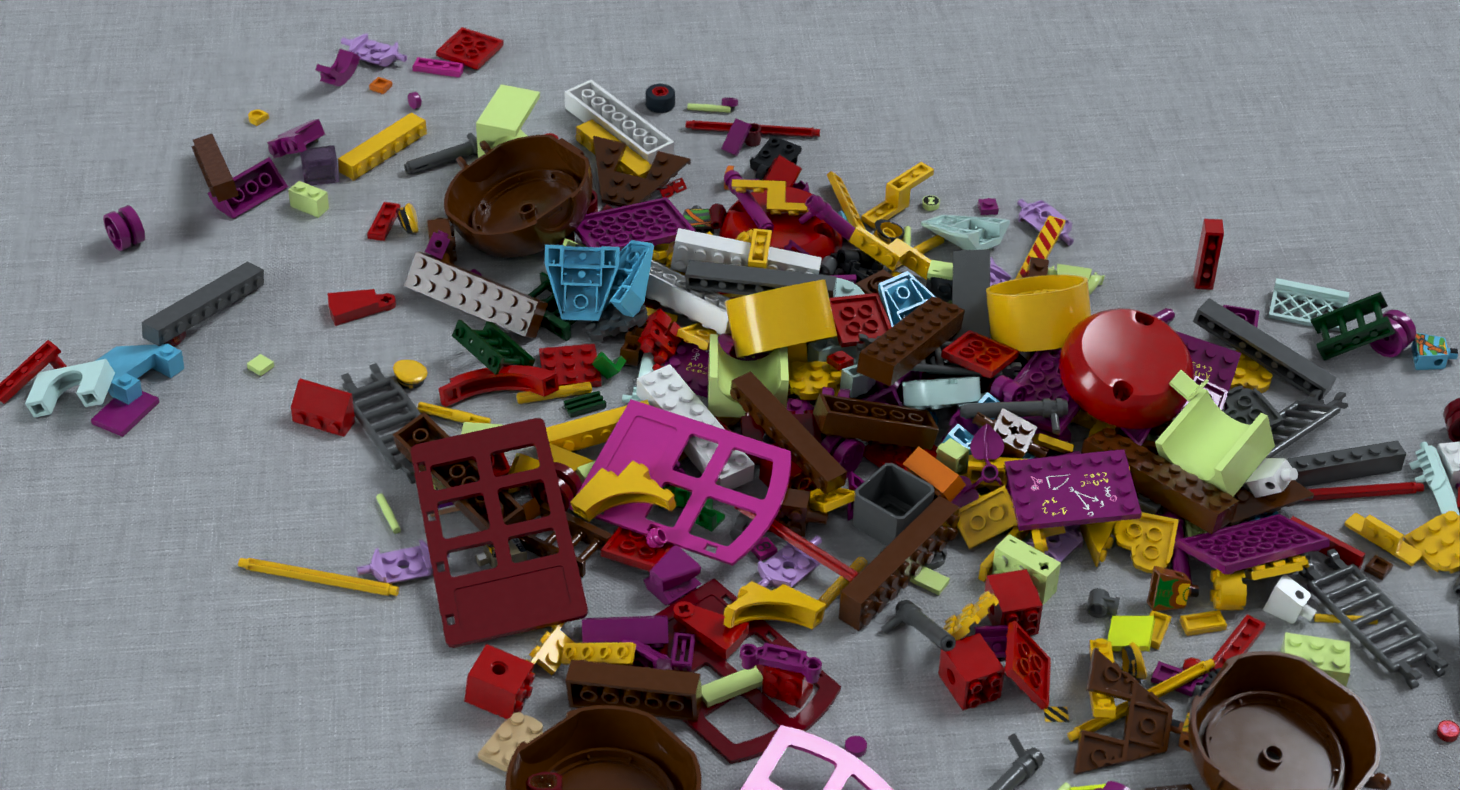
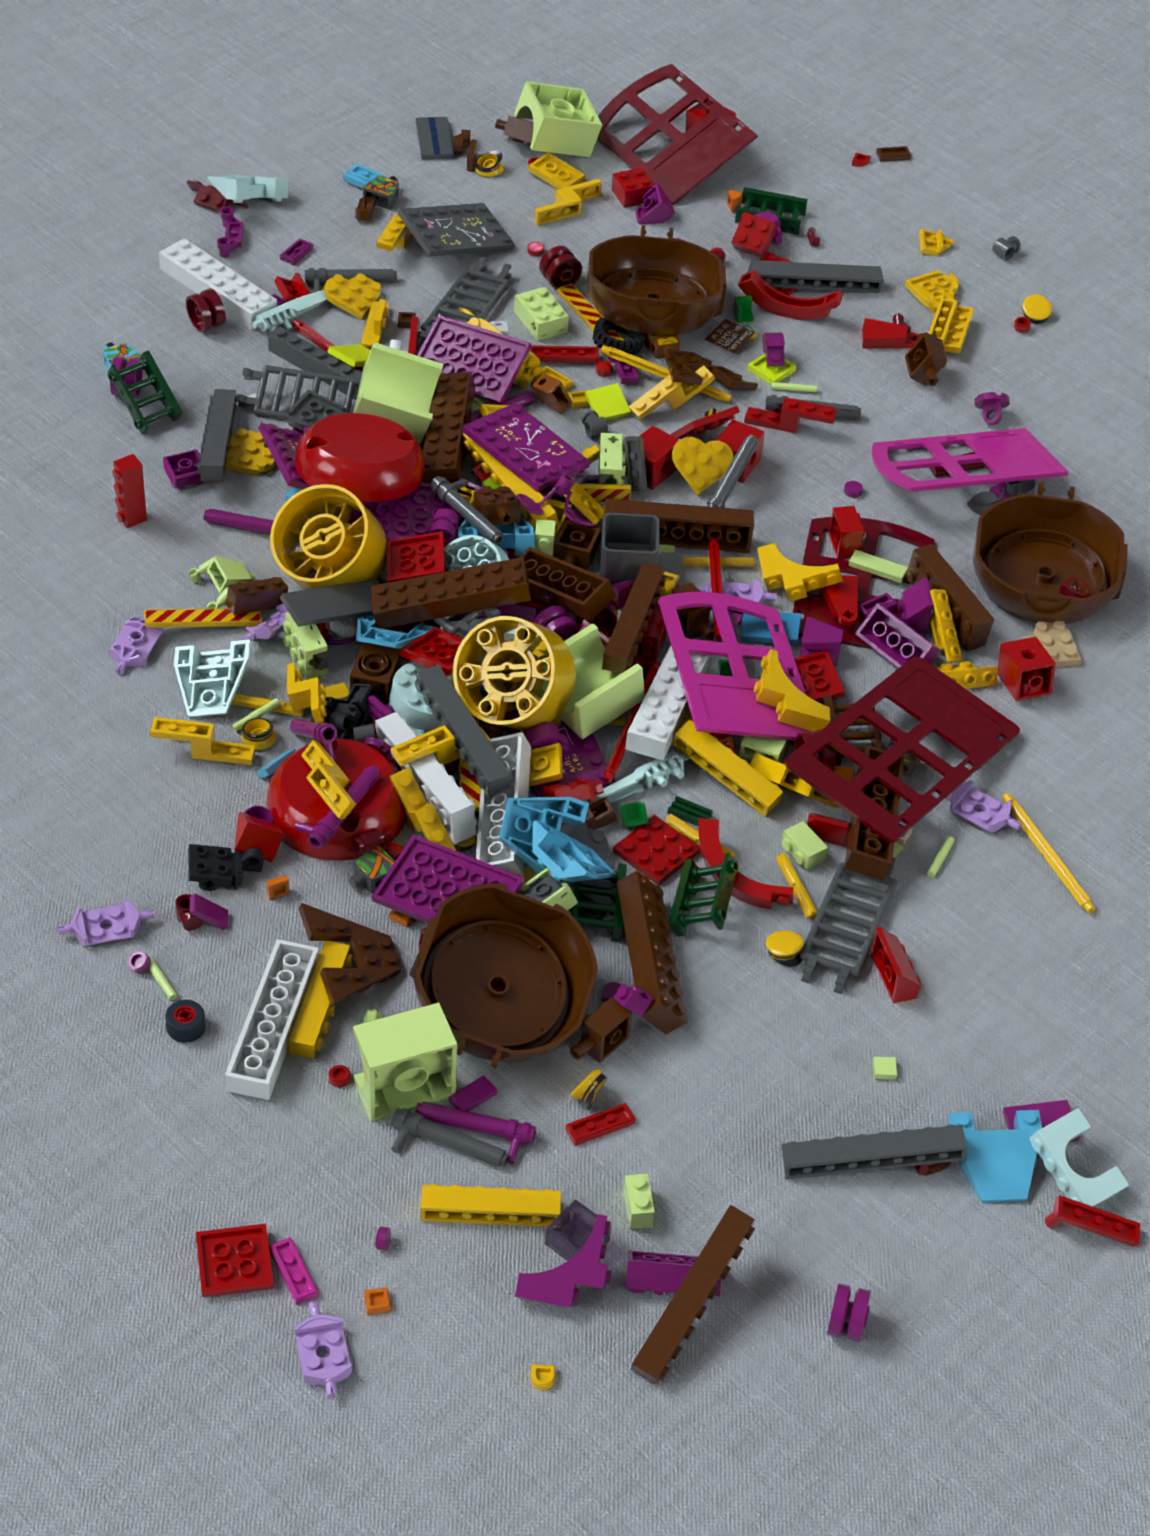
camera: 130 degrees left, 5 degrees up
(341, 70) = (398, 1351): magenta arch -> none
(358, 304) = (740, 1051): red piece -> none
(425, 179) = (509, 1129): none -> magenta cylinder
(656, 538) = (804, 661): dark pink plate -> none
(723, 576) = (757, 629): none -> dark azure tile
(765, 129) = (171, 921): red piece -> none
(777, 101) = (122, 918): none -> lavender plate
(781, 658) = (854, 516): magenta plate -> none
(845, 200) = (244, 777): yellow tile -> none
(931, 470) = (583, 528): orange brick -> none
(988, 206) = (146, 690): magenta plate -> none
(993, 753) = (790, 415): none -> red bracket
(1013, 563) = (635, 463): none -> dark grey tile
(1133, 661) = (640, 385): yellow piece -> none
(1186, 386) = (368, 406): yellowish green bracket -> none
(1309, 294) = (103, 445): light aqua fence -> none
(1330, 489) = (353, 355): none -> neon yellow tile
(1382, 705) = (560, 267): none -> dark red wheel

